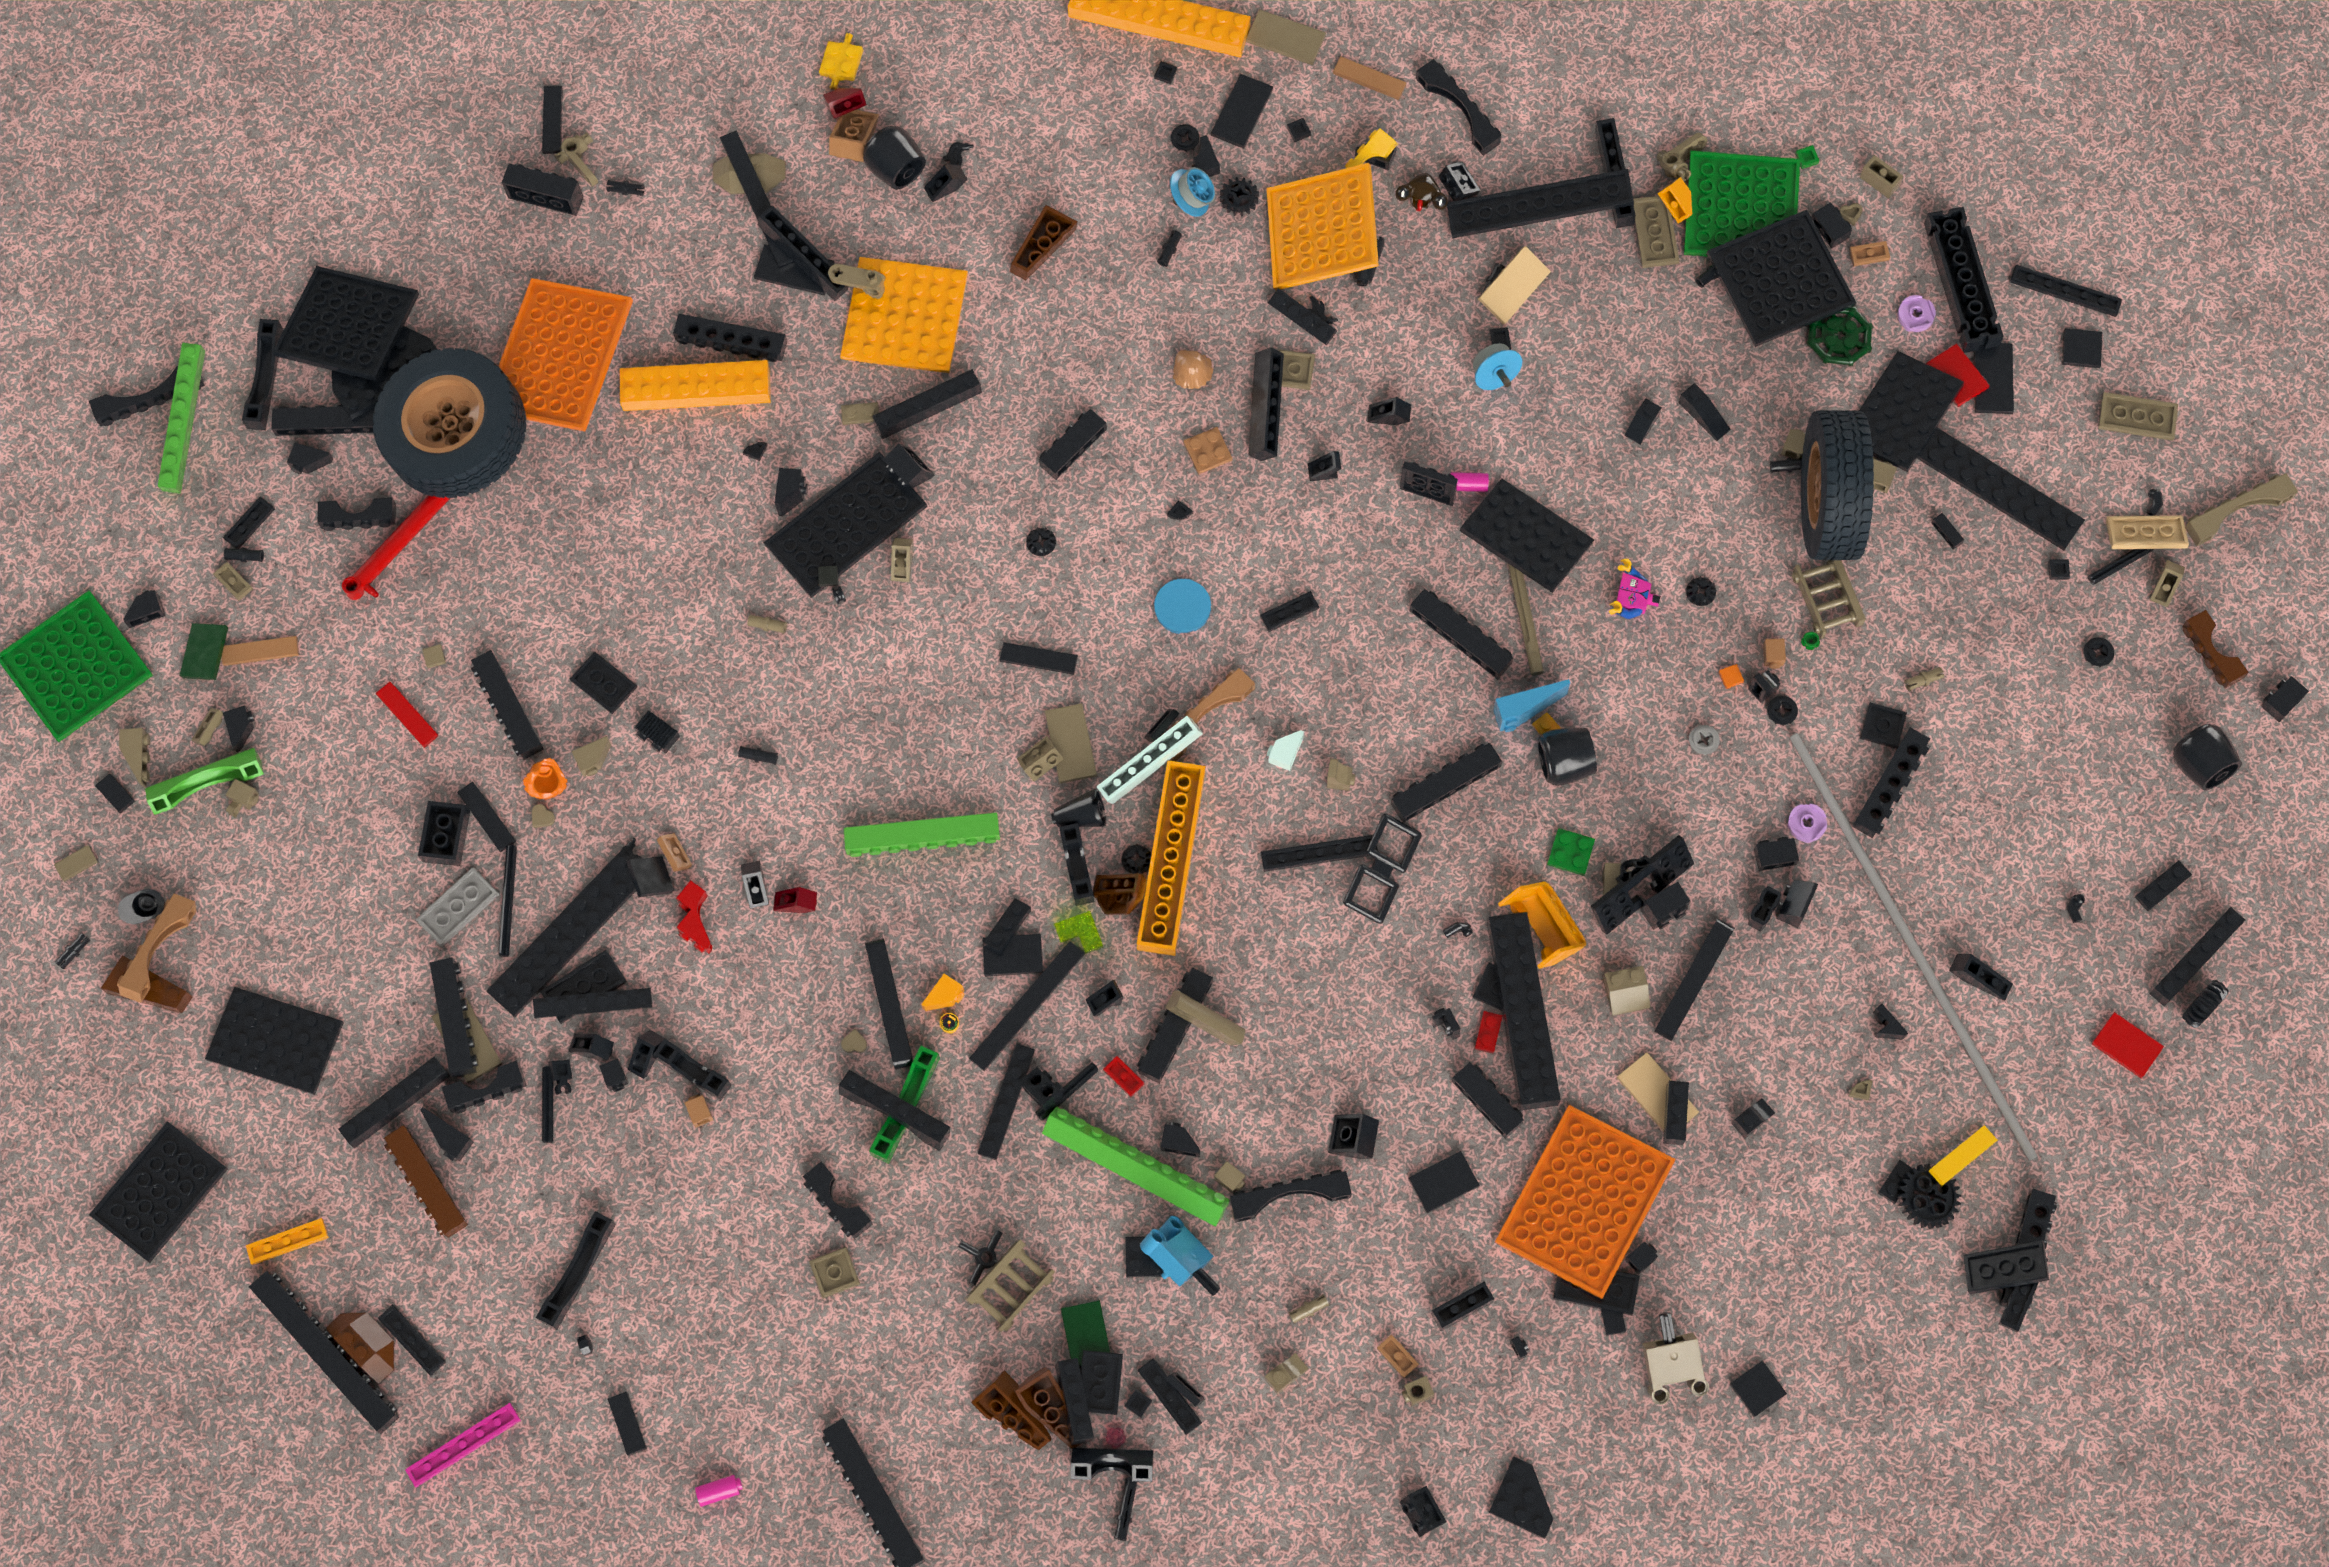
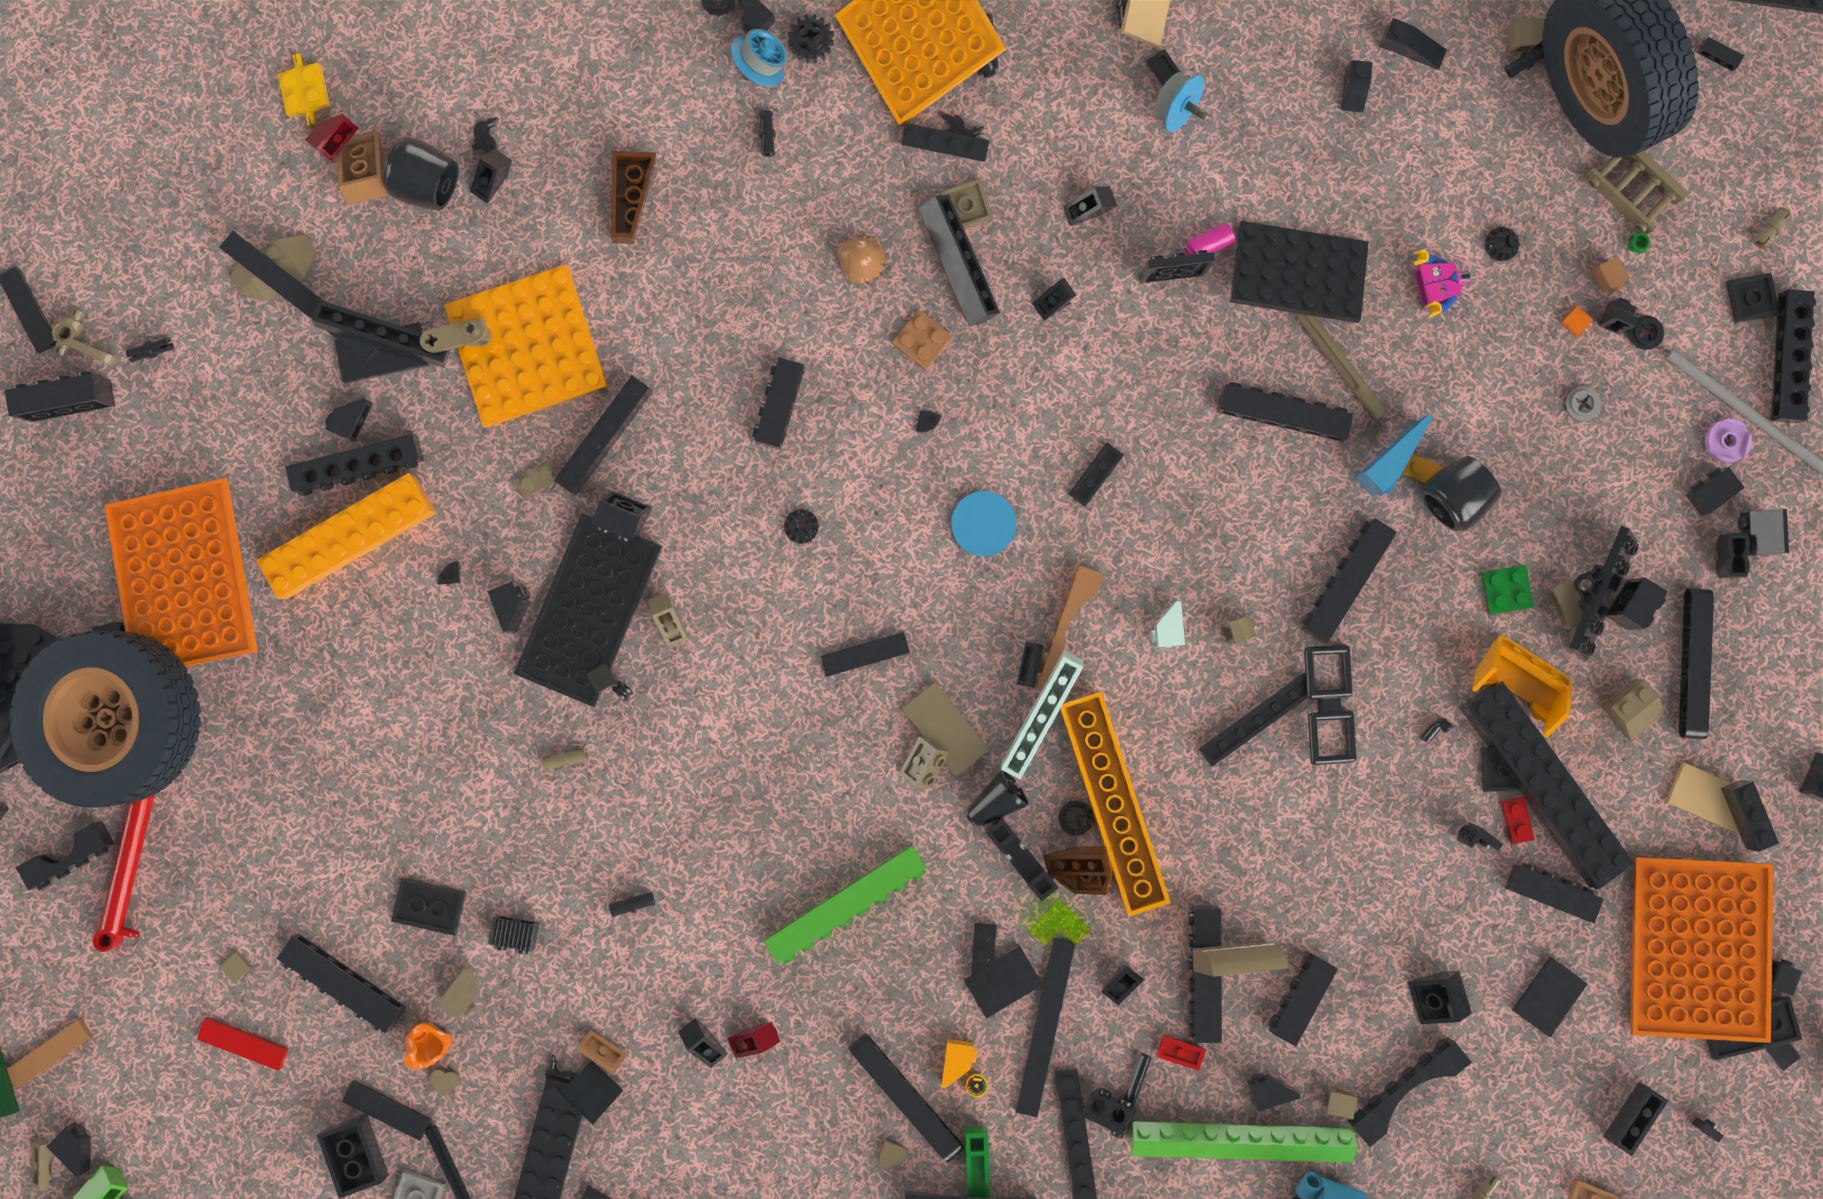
camera: 30 degrees left, 15 degrees up
(691, 926) = (664, 1120): red arch -> none
(743, 304) = (349, 419): none -> black slope
(1242, 1082) = (1302, 1000): none -> black brick

